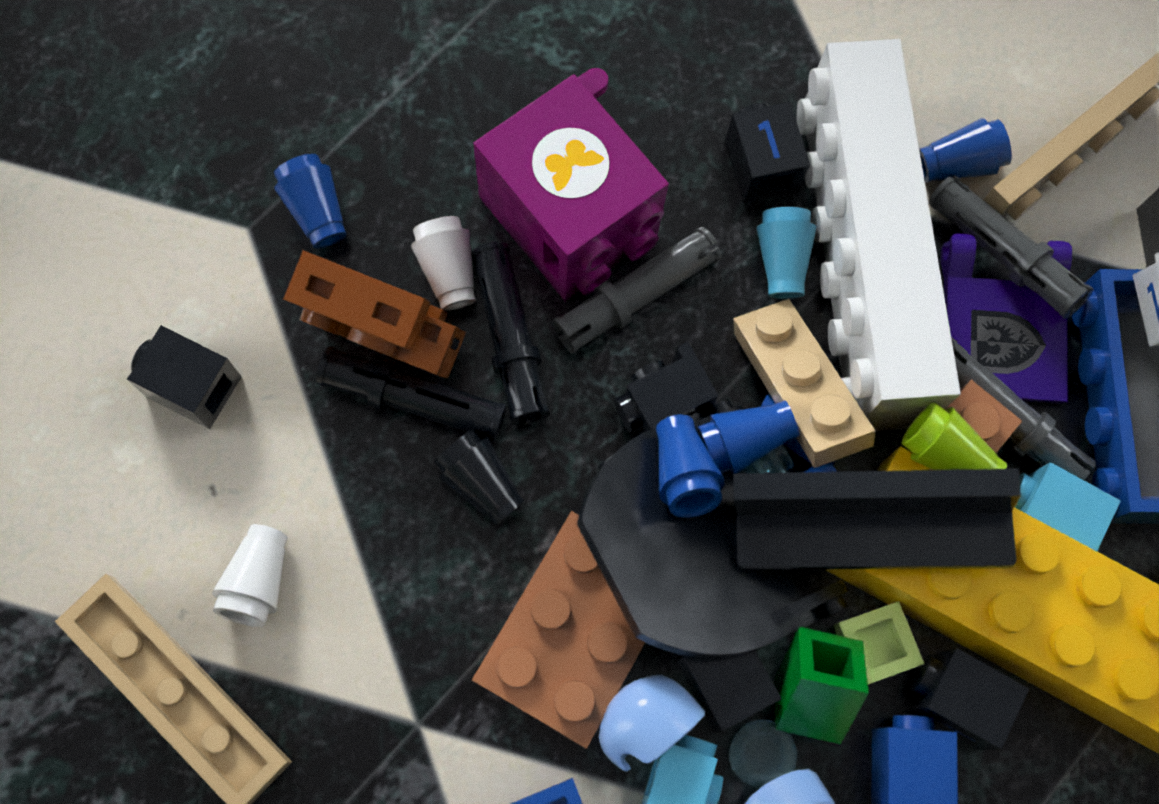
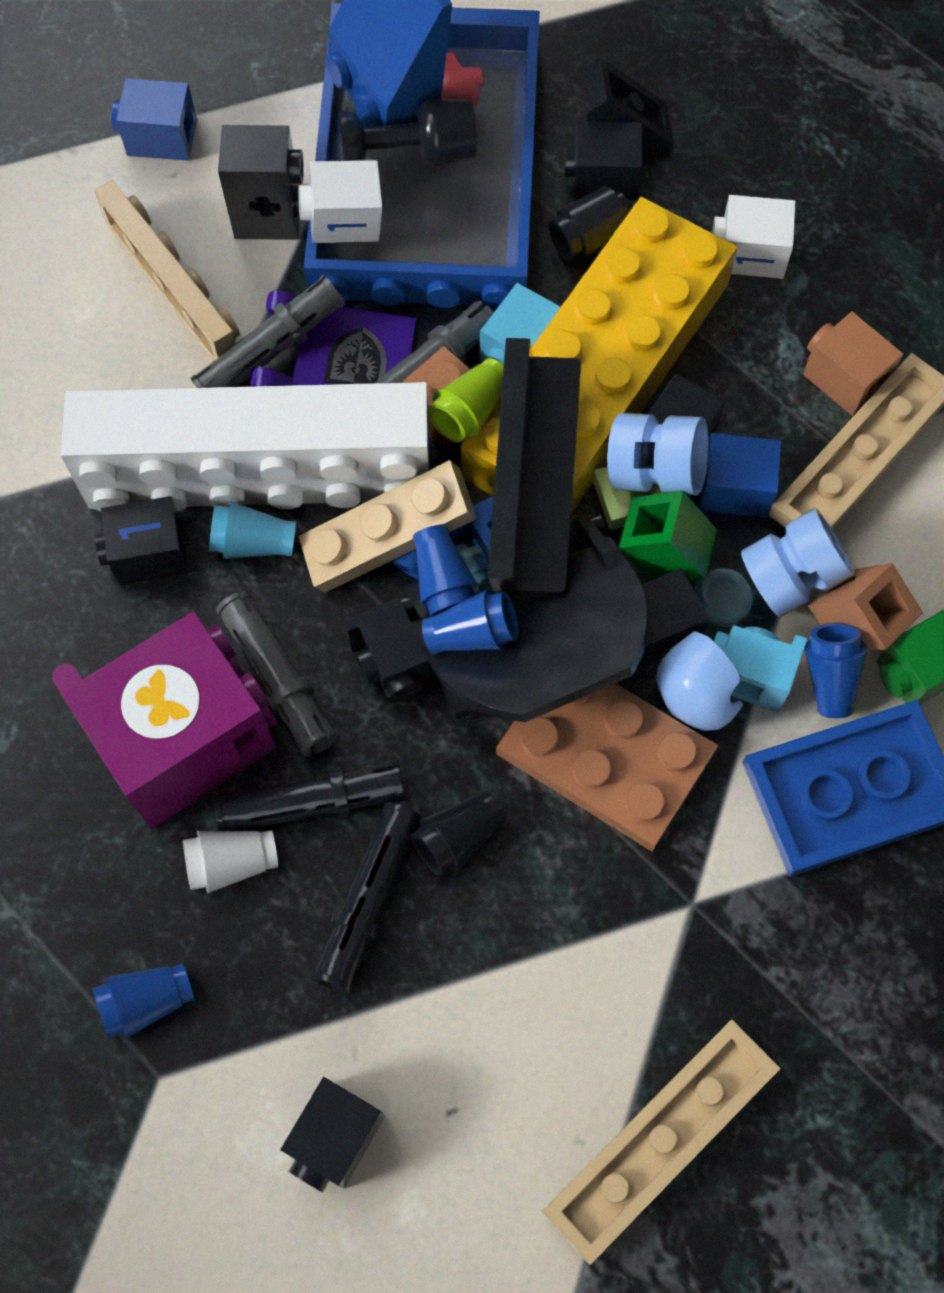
camera: 80 degrees left, 5 degrees down
(252, 578) = (549, 1059): white cone -> none
(374, 314) = (293, 913): dark orange piece -> none
(914, 666) = (678, 453): none -> light blue wheel
(968, 152) = (165, 356): blue cone -> none

